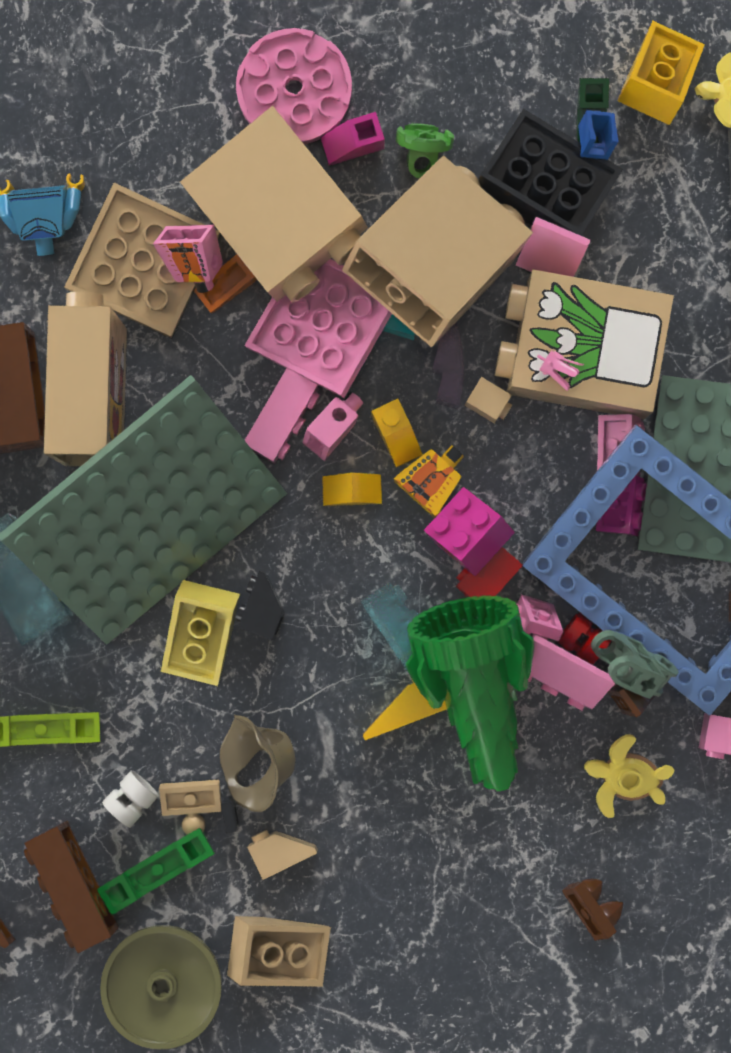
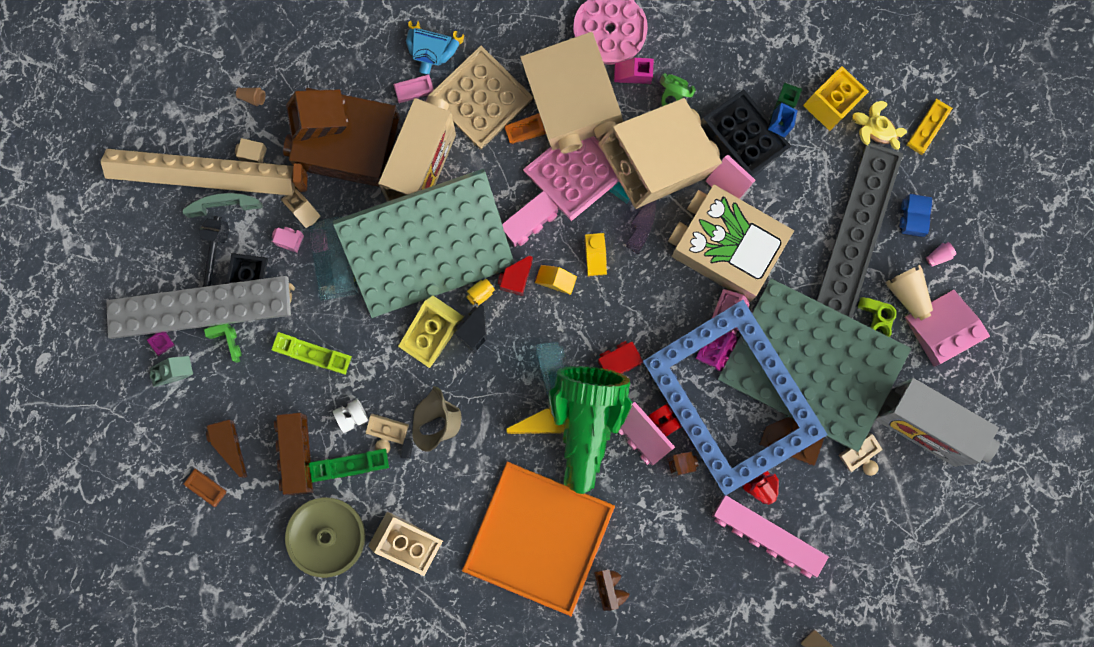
camera: 20 degrees right, 5 degrees down
(39, 283) = (413, 88): none -> bright pink tile
(191, 254) = (511, 102): bright pink torso -> none
(249, 549) = (480, 292): none -> yellow brick
(278, 851) = (427, 481): tan slope -> none
(293, 508) = (516, 276): none -> red slope
(325, 432) = (557, 235): bright pink torso -> none
(431, 479) = (606, 290): torso -> none
(465, 873) = (538, 538): none -> orange tile
(469, 531) = (618, 328): dark pink brick -> none
(489, 401) = (659, 255): tan brick -> none
(539, 618) = (641, 396): bright pink bracket -> none
(556, 362) = (706, 242): bright pink piece -> none
(627, 776) = (660, 515): light yellow animal -> none
(635, 666) = (688, 443): sand green piece -> none

